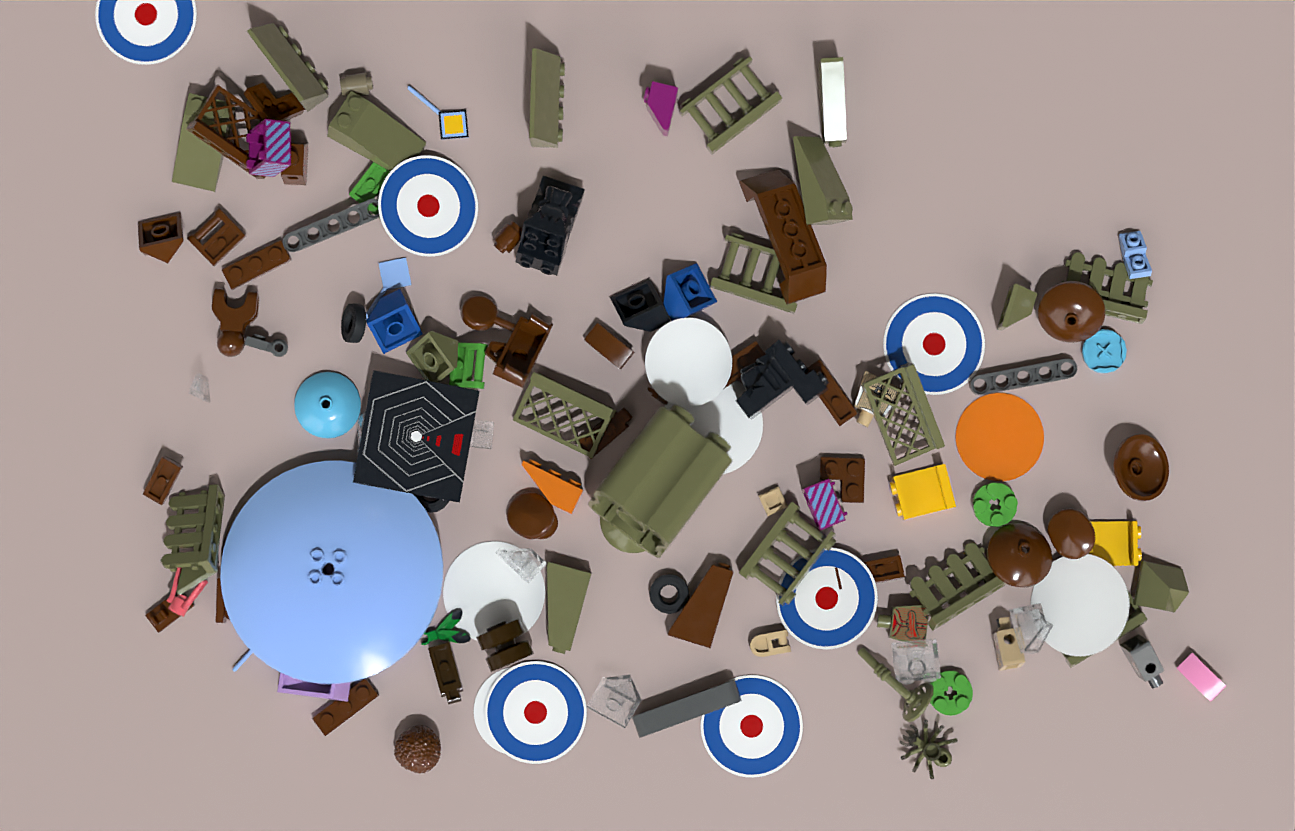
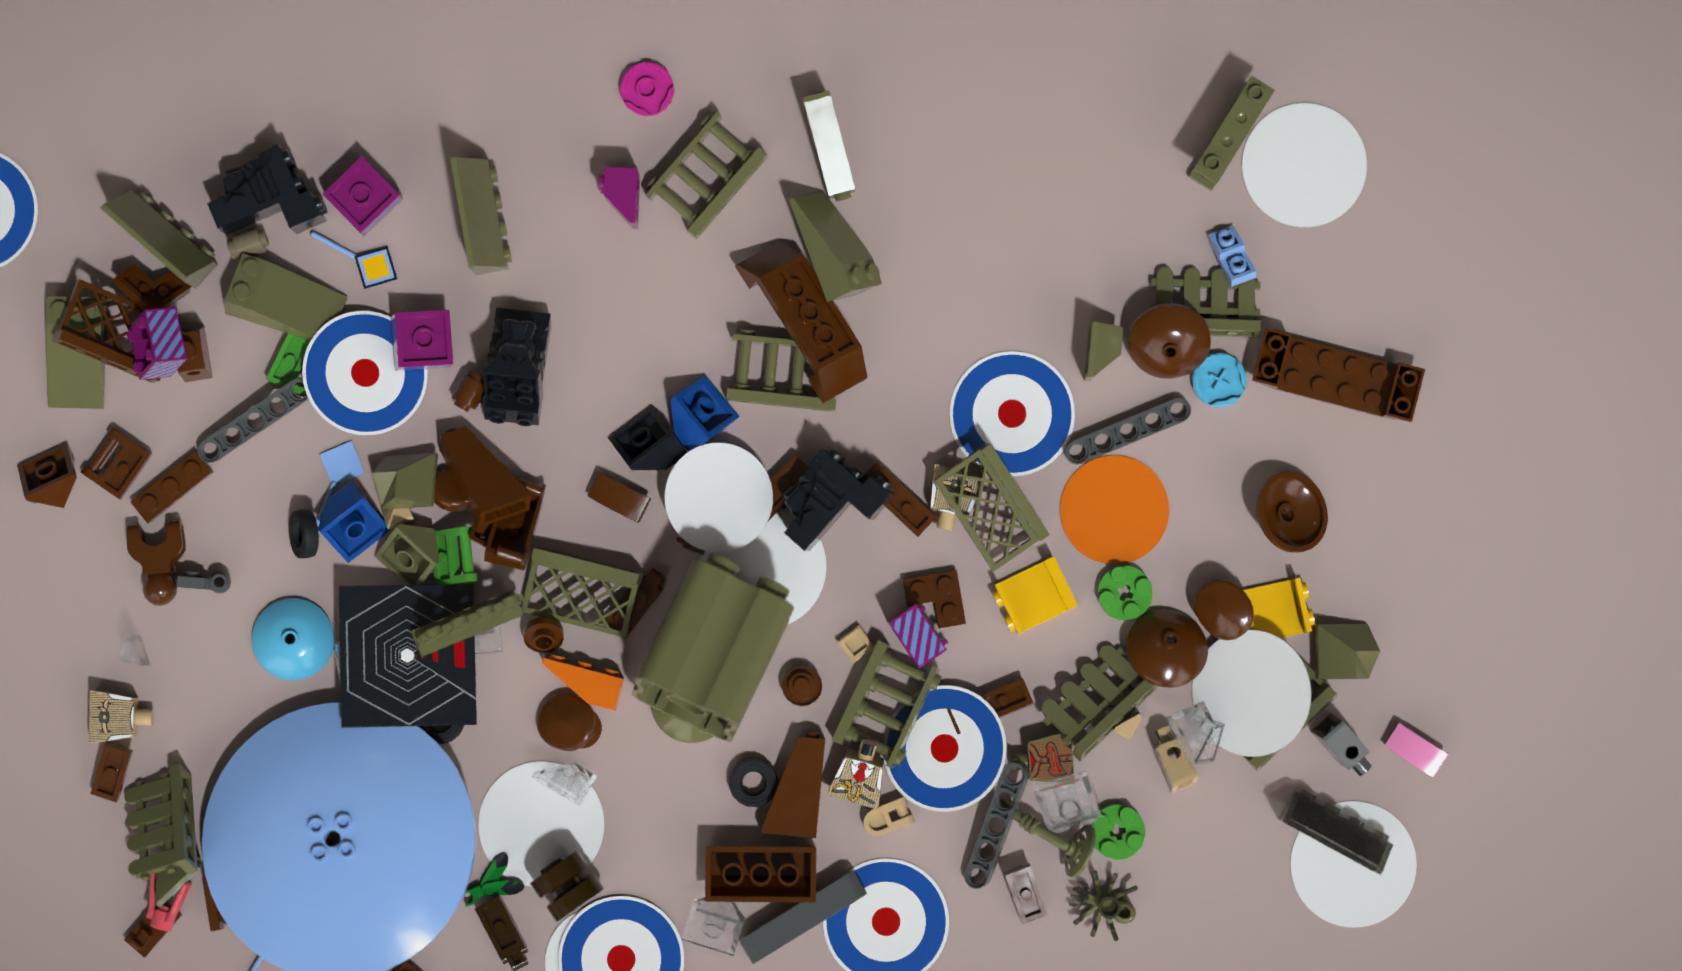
camera: 10 degrees left, 0 degrees up
(174, 437) = (115, 717): none -> torso
(379, 44) = (264, 189): none -> black brick
(431, 320) = (396, 516): none -> tan slope
(443, 298) = (406, 480): none -> olive slope
(455, 65) = (362, 196): none -> magenta container
(469, 420) = (467, 623): none -> olive fence
(479, 189) = (422, 340): none -> magenta container
(503, 308) = (481, 478): none -> reddish brown slope
(527, 442) = (543, 634): none -> reddish brown plate
(565, 601) = (629, 818): olive slope -> none
(661, 667) = (760, 874): none -> reddish brown slope
(697, 27) = (647, 89): none -> dark pink tile
(723, 525) = (802, 686): none -> reddish brown plate
(754, 606) = (859, 776): none -> torso
(846, 673) = (986, 834): none -> dark grey beam
(867, 726) = (1025, 893): none -> plate
(976, 612) = (1128, 727): none -> tan slope
(1124, 729) = (1337, 832): none -> clear smoke slope
(1132, 757) = (1344, 889): none -> white sticker
(1155, 157) = (1231, 133): none -> olive fence
(1199, 368) = (1338, 376): none -> reddish brown slope
(1206, 194) = (1304, 165): none -> white sticker

